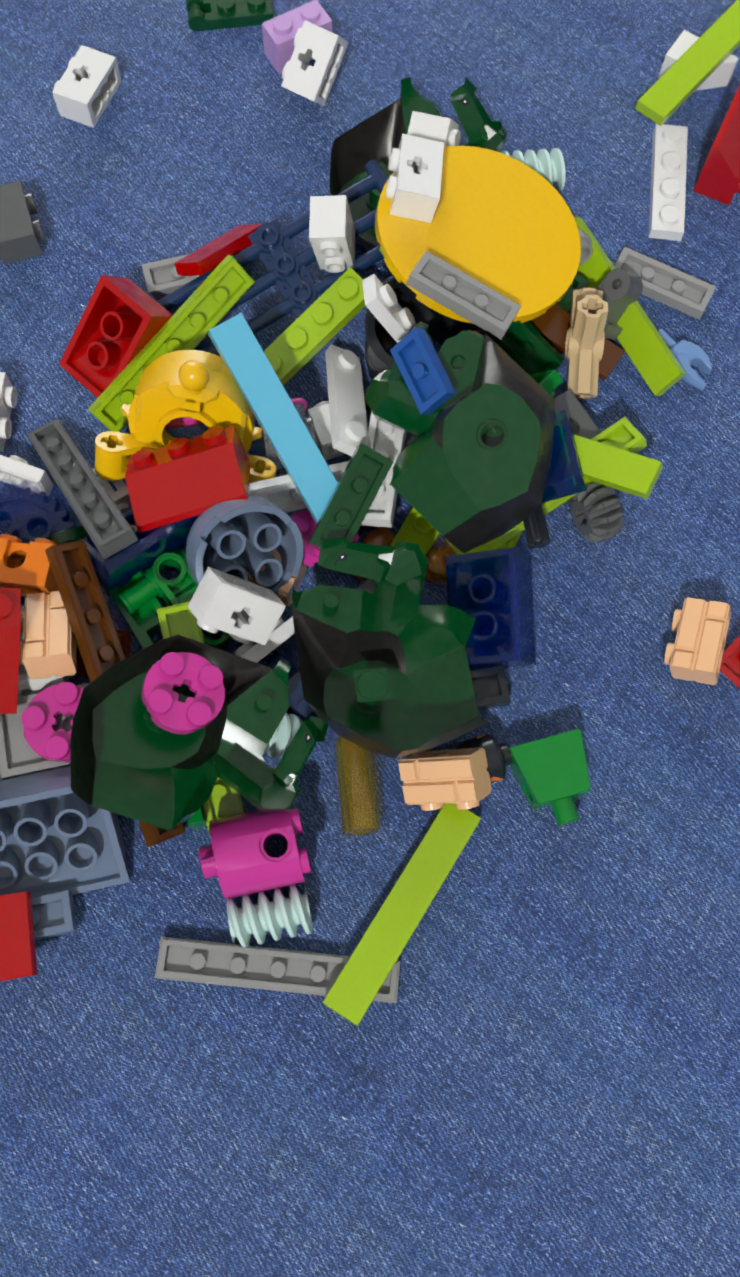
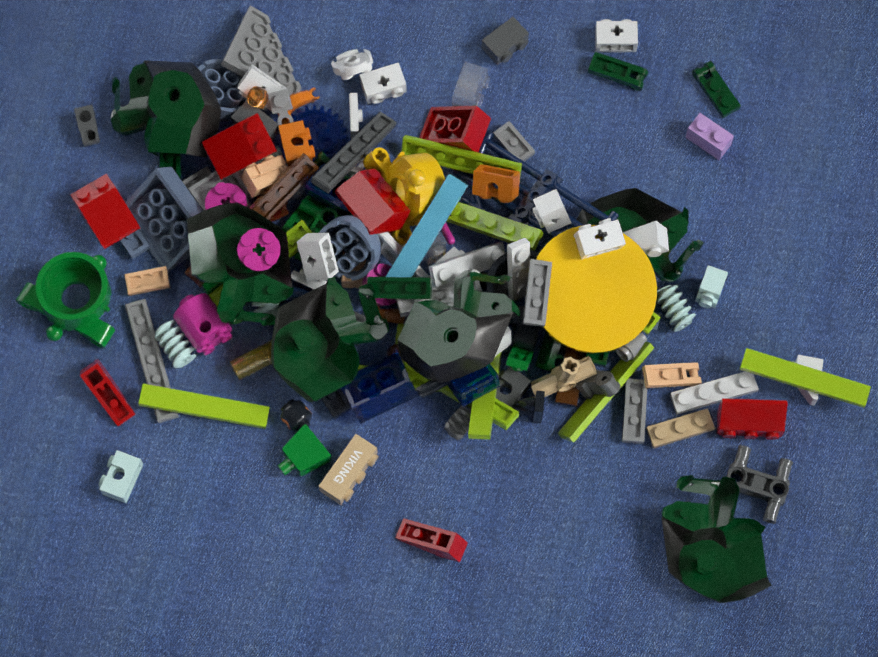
camera: 70 degrees right, 0 degrees up
(55, 293) = (470, 85): none -> clear brick
(79, 1121) = (51, 283): none -> green piece
(130, 920) = (147, 280): none -> light nougat plate
(139, 107) = (617, 71): none -> dark green plate
(213, 253) = (534, 157): red tile -> none
(243, 282) = (505, 179): none -> orange brick
(303, 1077) = (107, 392): none -> red slope
(316, 80) = (688, 154): white brick -> none
(422, 371) = (477, 288): blue plate -> none
(445, 778) = (275, 397): light nougat brick -> none
(499, 1124) = (122, 488): none -> light aqua brick
(525, 110) = (711, 287): none -> light aqua brick
(607, 712) = (349, 470): none -> tan brick
(615, 396) = (532, 406): none -> black tile
(630, 215) = (671, 375): none -> light nougat plate
(687, 355) = (591, 440): medium blue hand -> none
(699, 640) = (409, 503): light nougat brick -> none
(706, 239) = (680, 428): none -> tan plate

